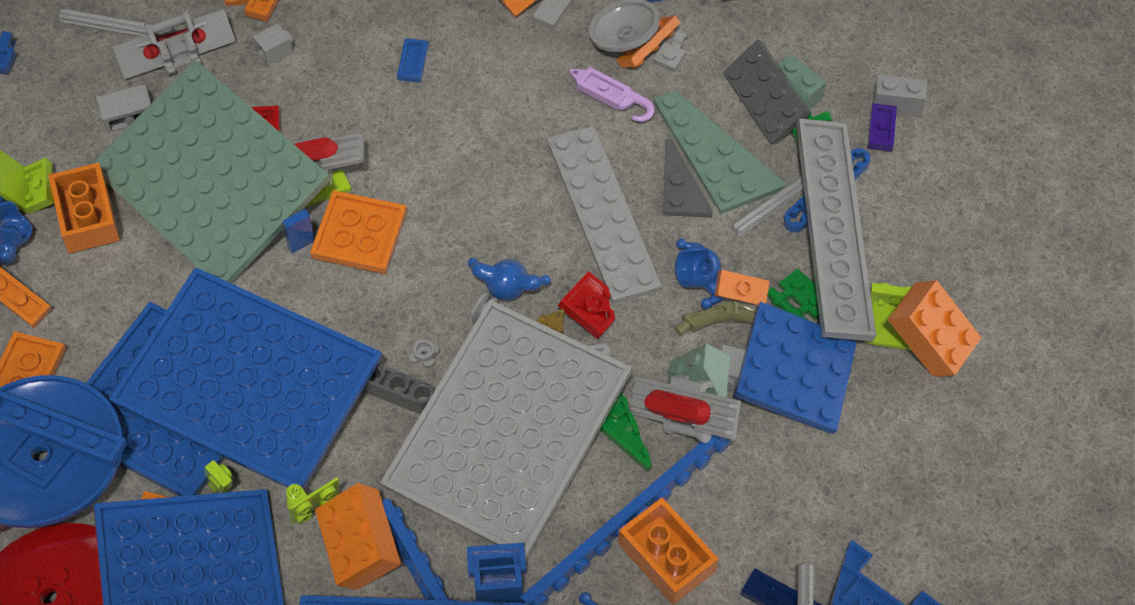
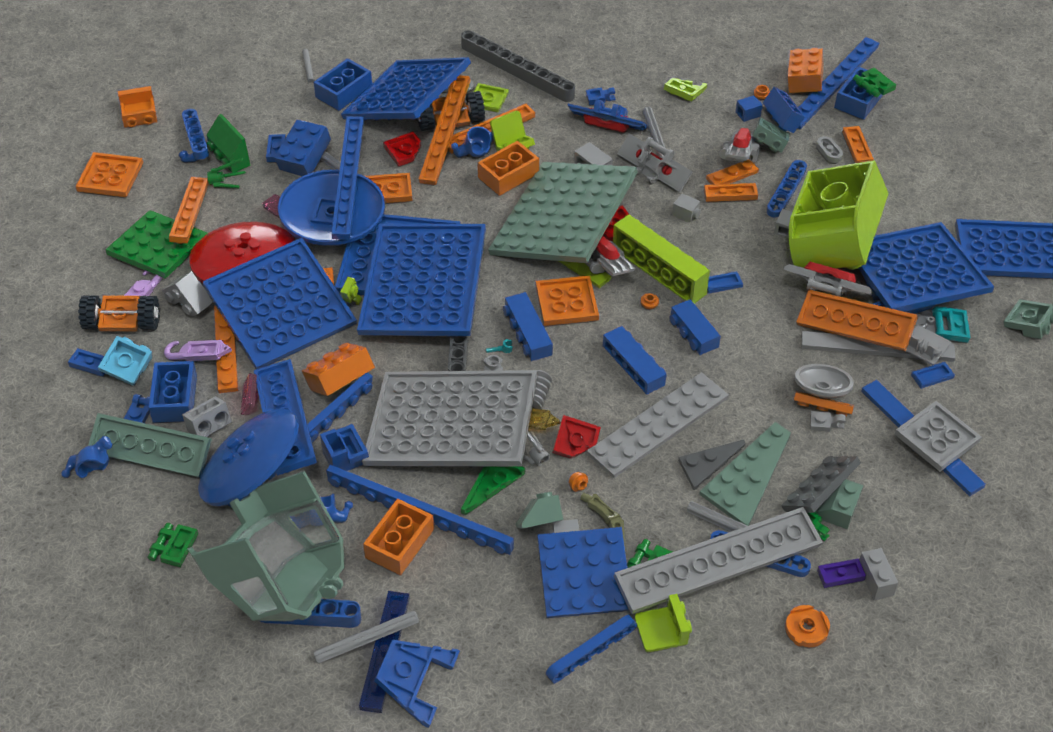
camera: 70 degrees right, 10 degrees down
(40, 71) = (617, 117): none -> blue piece
(298, 231) = (544, 265): blue tile -> none
(302, 506) = (348, 334): lime hinge -> none
(356, 101) = (661, 259): none -> lime brick
(383, 289) = (528, 326): none -> blue brick
(400, 332) = (506, 347): none -> teal hand
(405, 150) = (649, 301): none -> orange plate
(475, 115) = (694, 327): none -> blue brick
(497, 196) = (634, 360): none -> blue brick
(507, 278) = (571, 385): blue piece -> none
(610, 91) = (764, 396): lavender plate -> none
(657, 326) = (578, 481): none -> orange plate
(686, 402) = (508, 503): light grey piece -> none
(698, 269) = (638, 493): blue piece -> none
(741, 288) = (635, 520): orange plate -> none
(898, 397) = (594, 645): none -> blue beam
(934, 328) = (657, 646): orange brick -> none
(937, 198) = (807, 637): none -> orange plate

